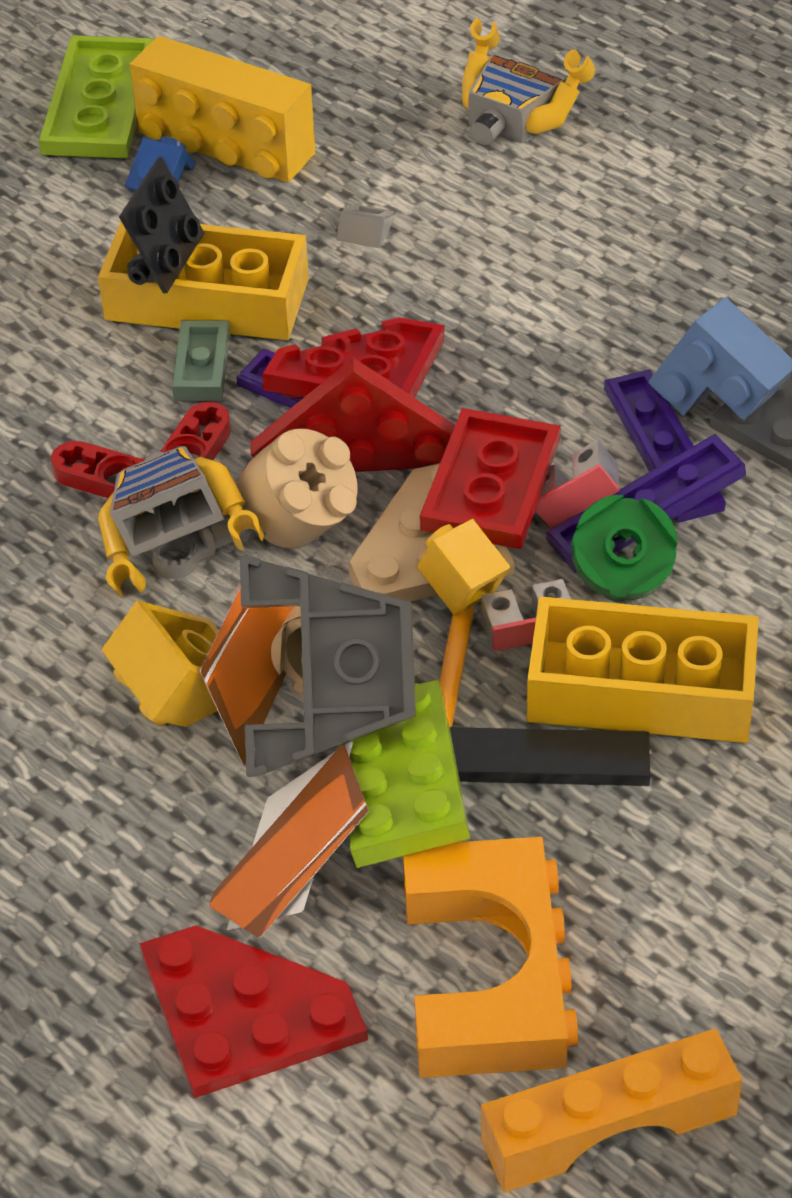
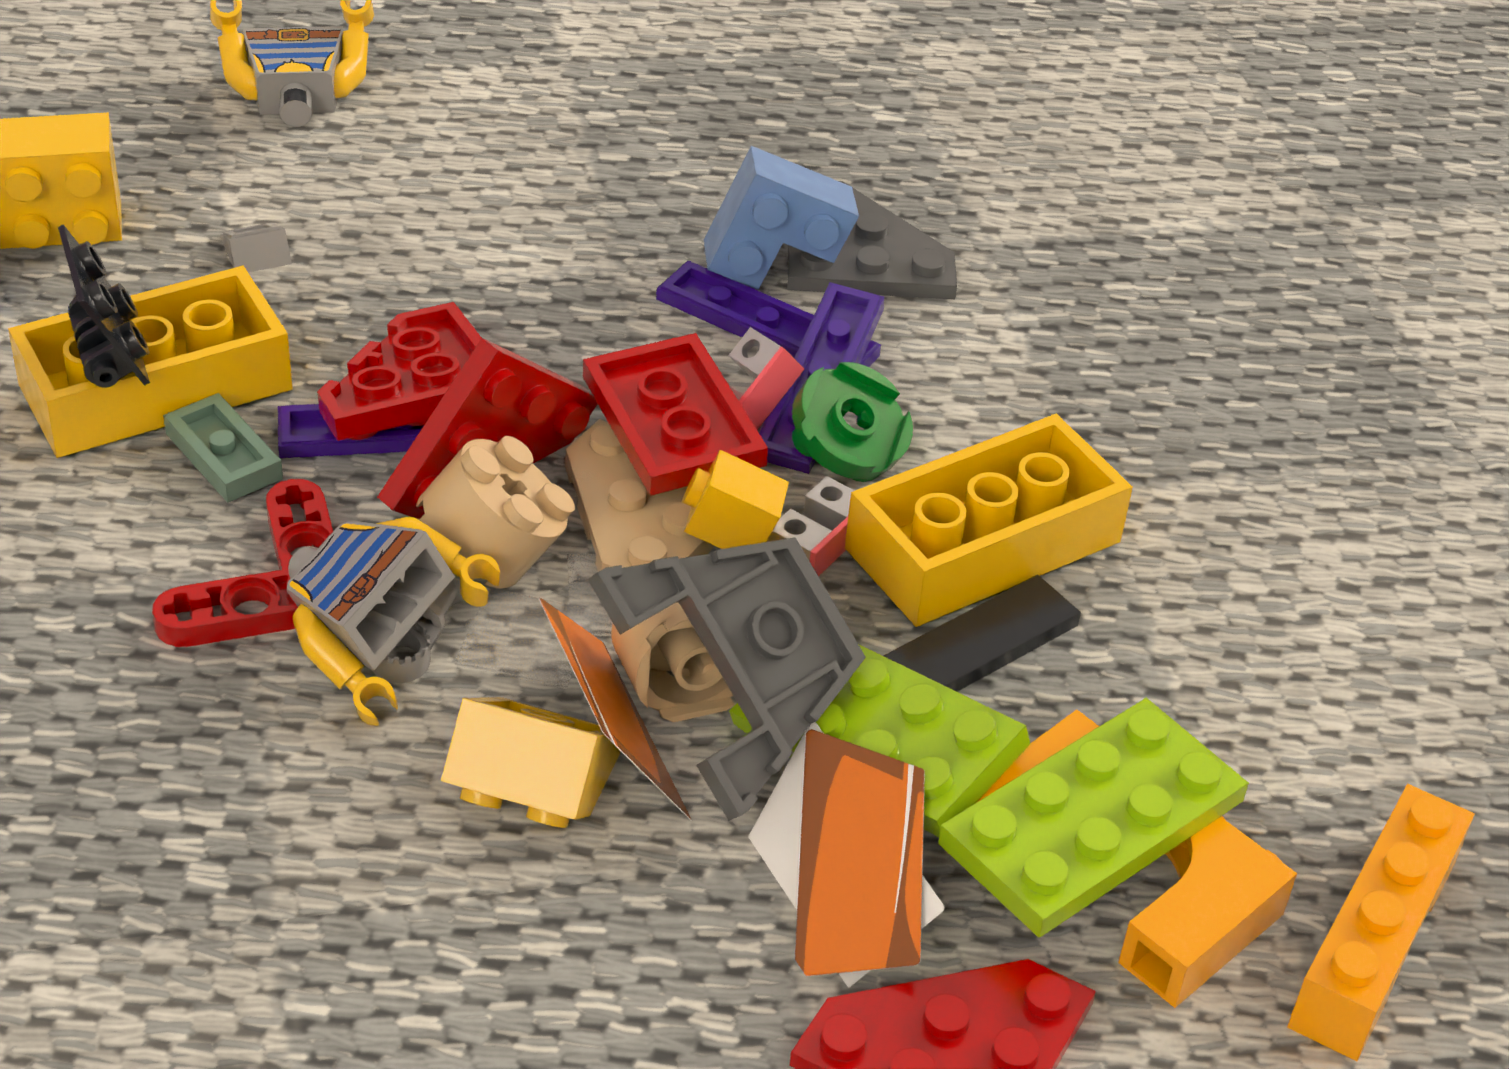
camera: 45 degrees left, 5 degrees down
(464, 911) = (1092, 816): none -> lime plate

